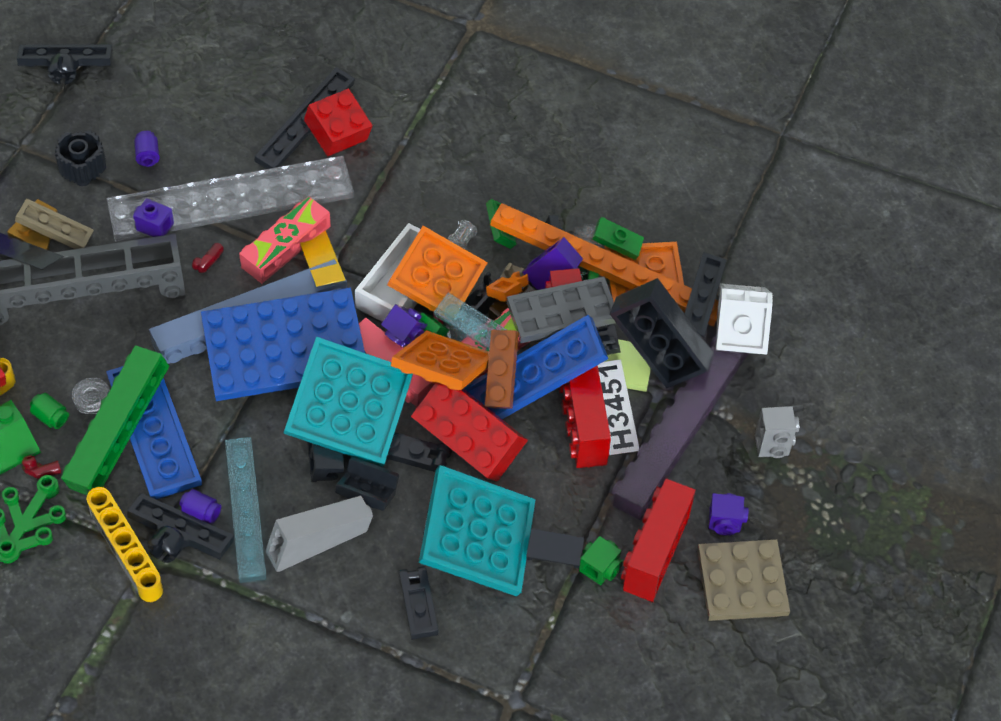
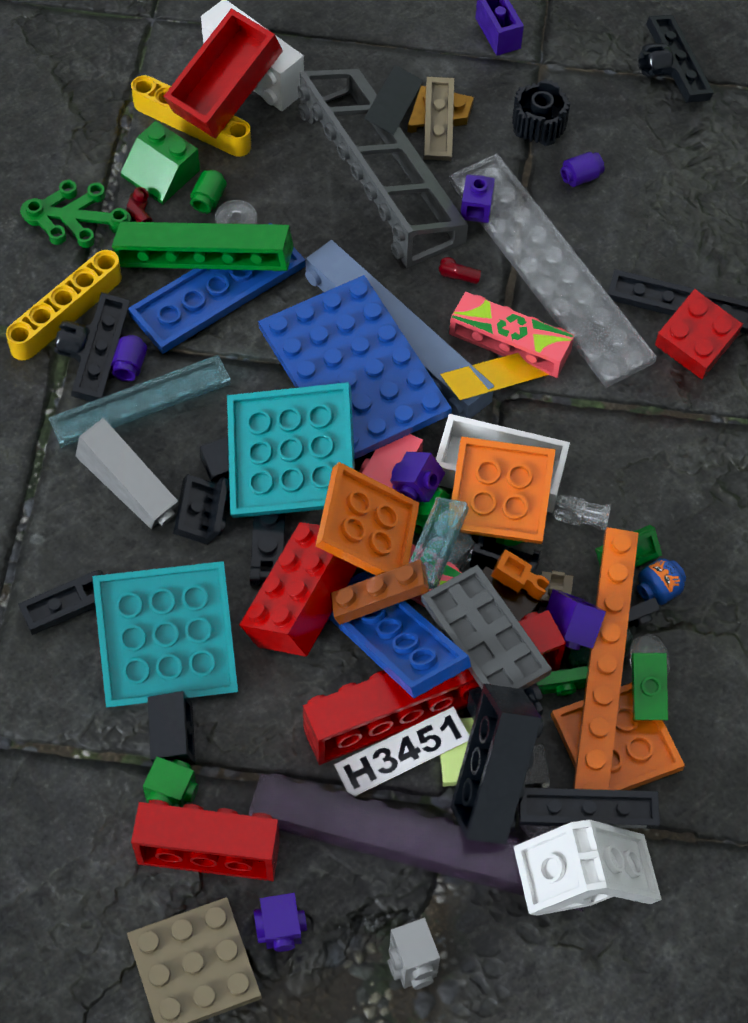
camera: 75 degrees right, 5 degrees up
(532, 206) = (661, 580): none -> blue head

